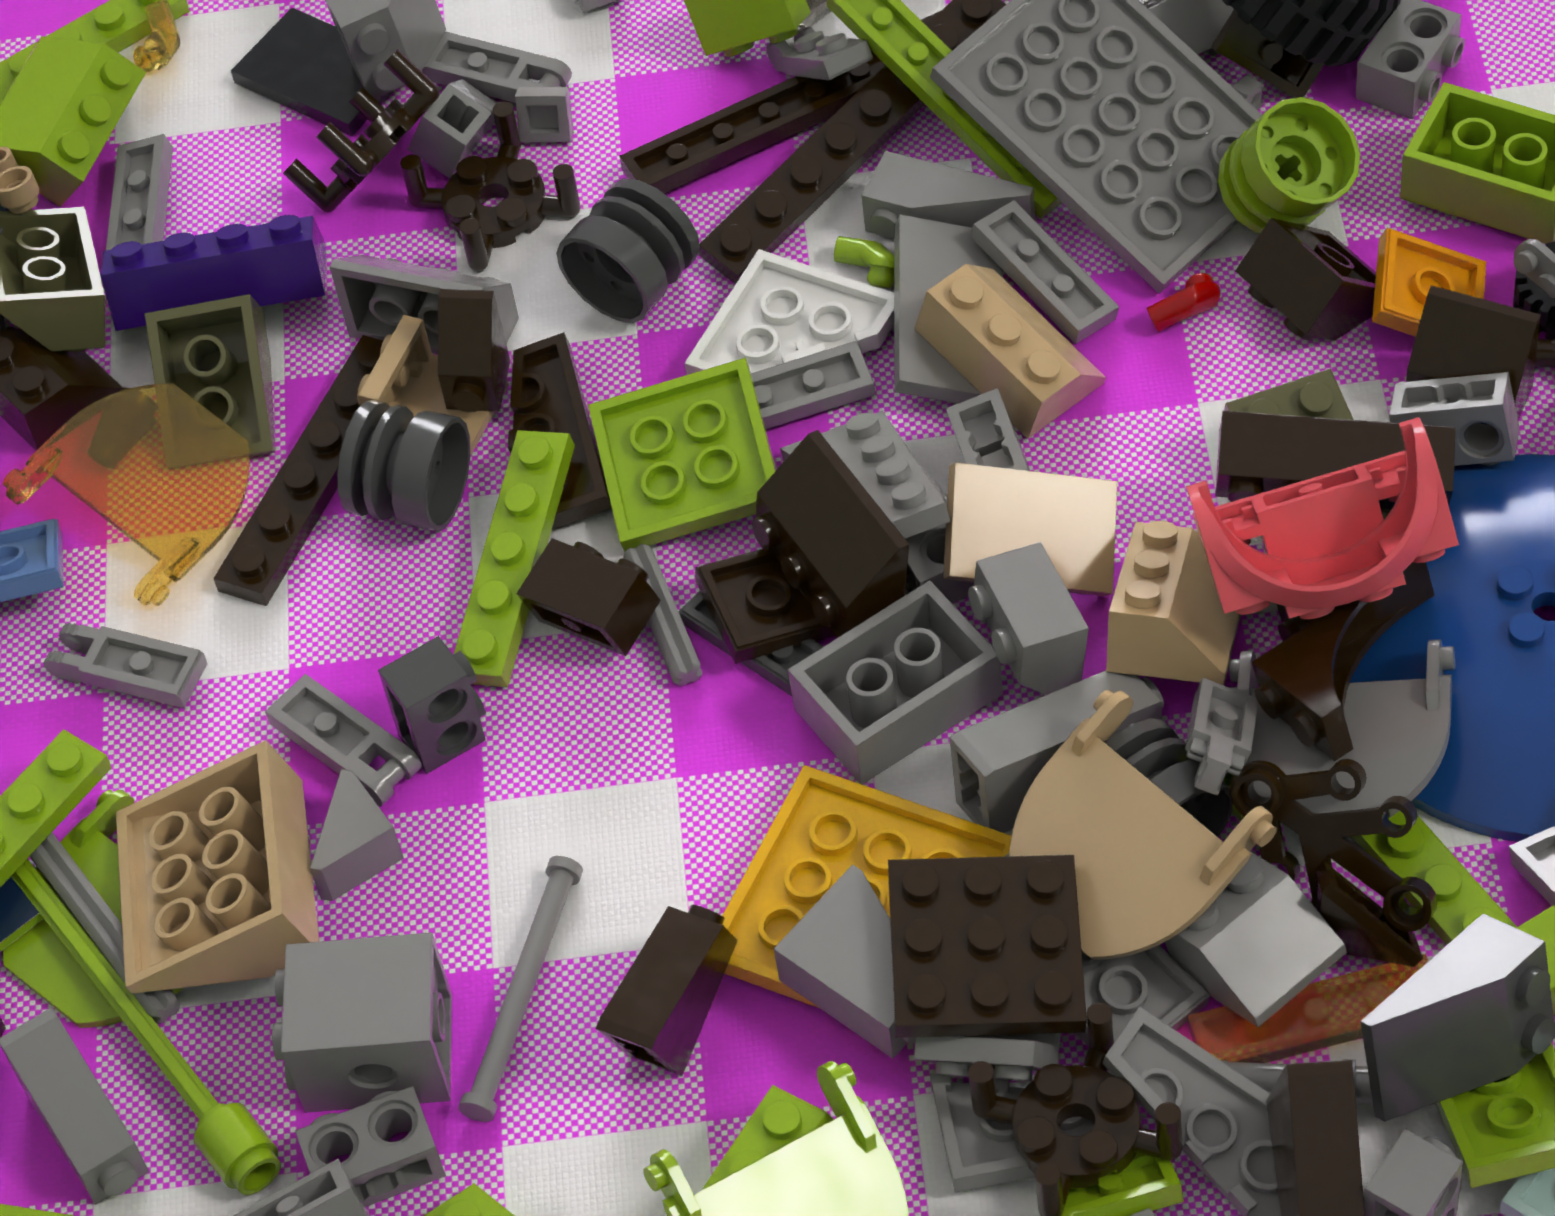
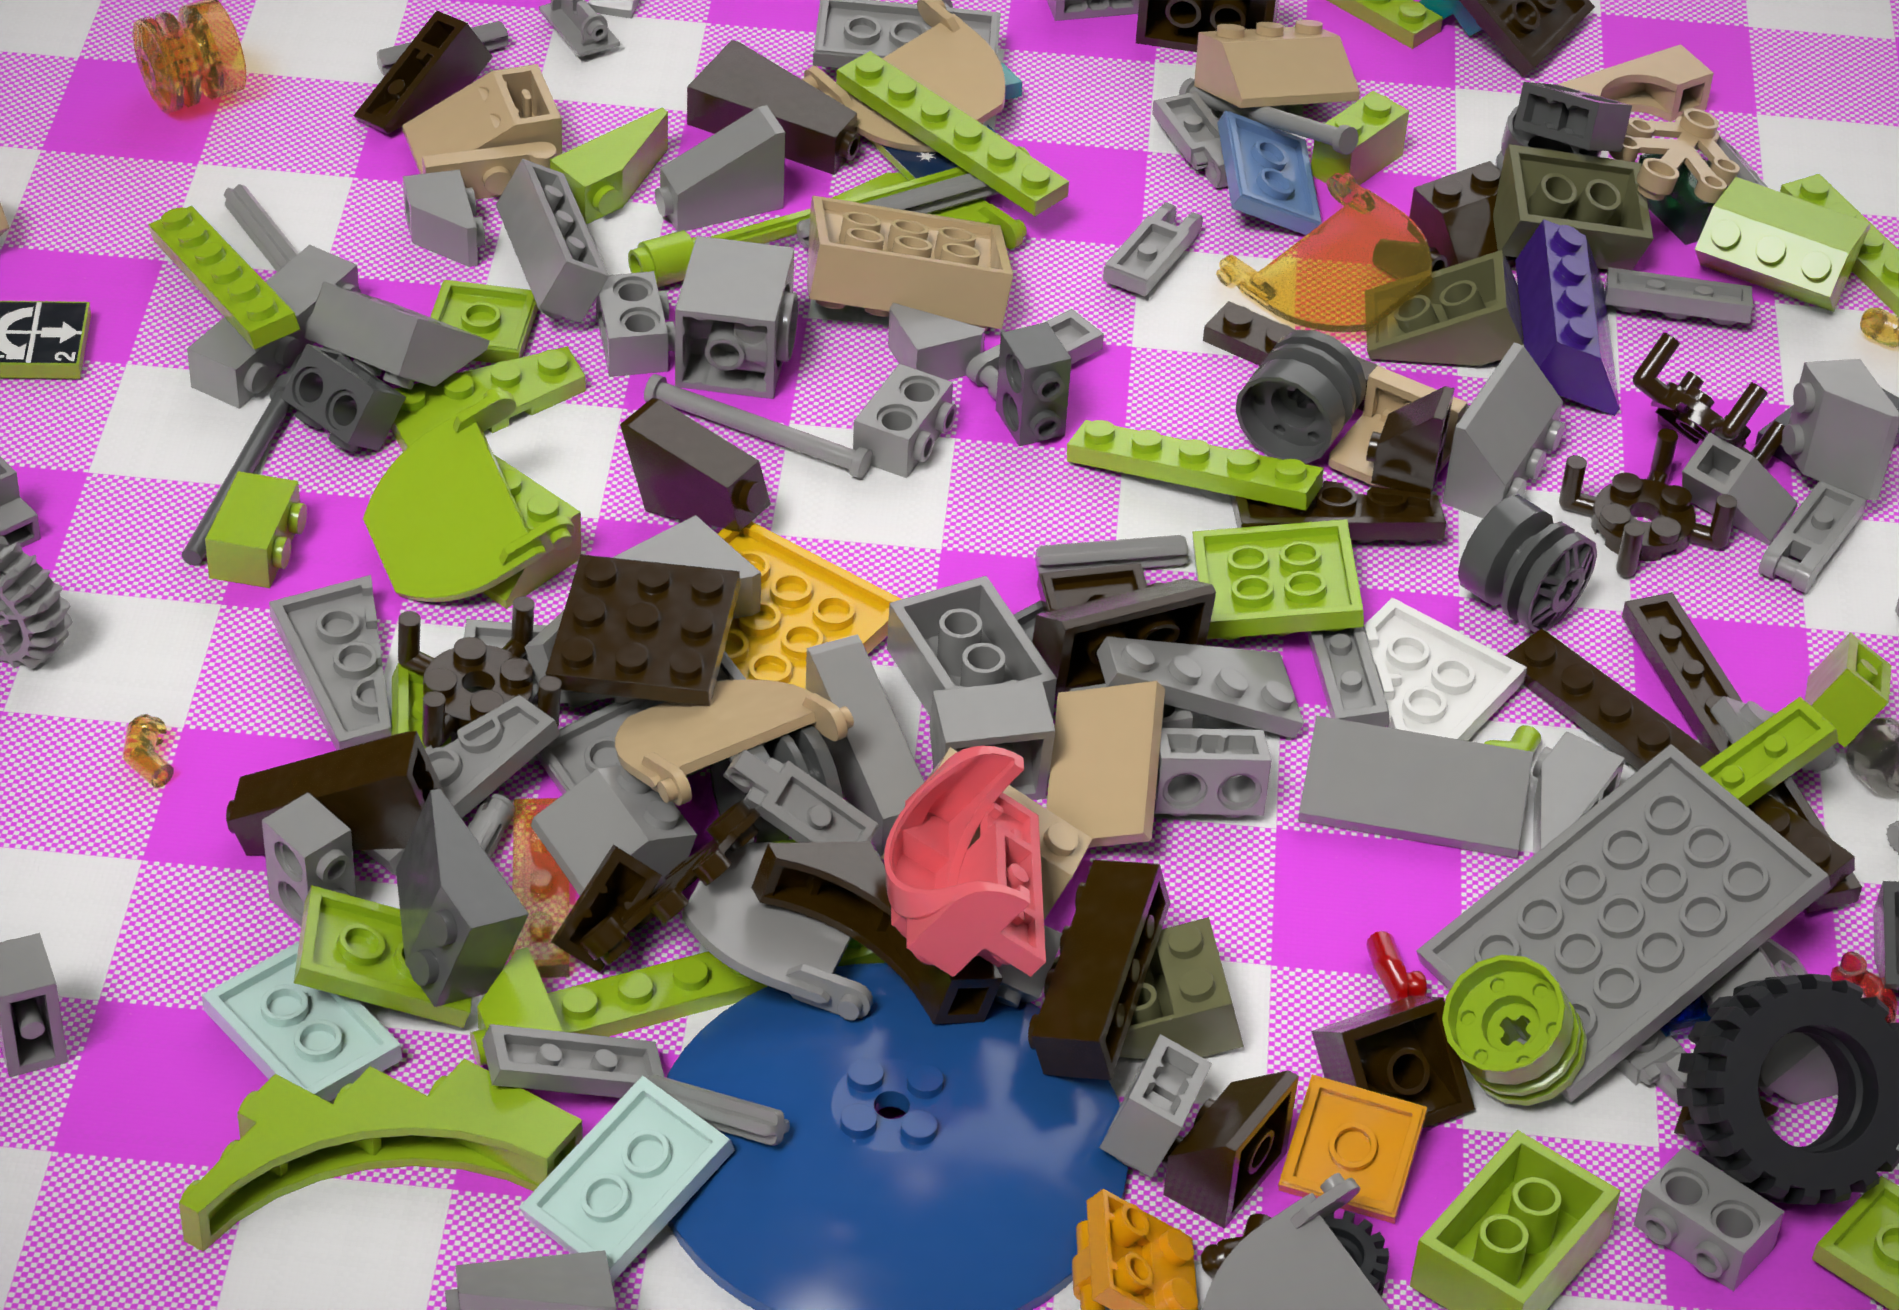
camera: 90 degrees right, 10 degrees down
(491, 846) = (905, 419): none -> light grey brick
(544, 114) = (1742, 553): light grey plate -> none
(589, 595) = (1127, 495): dark brown brick -> none
(1005, 345) = (1346, 803): tan slope -> none
(1044, 271) = (1449, 859): light grey plate -> none

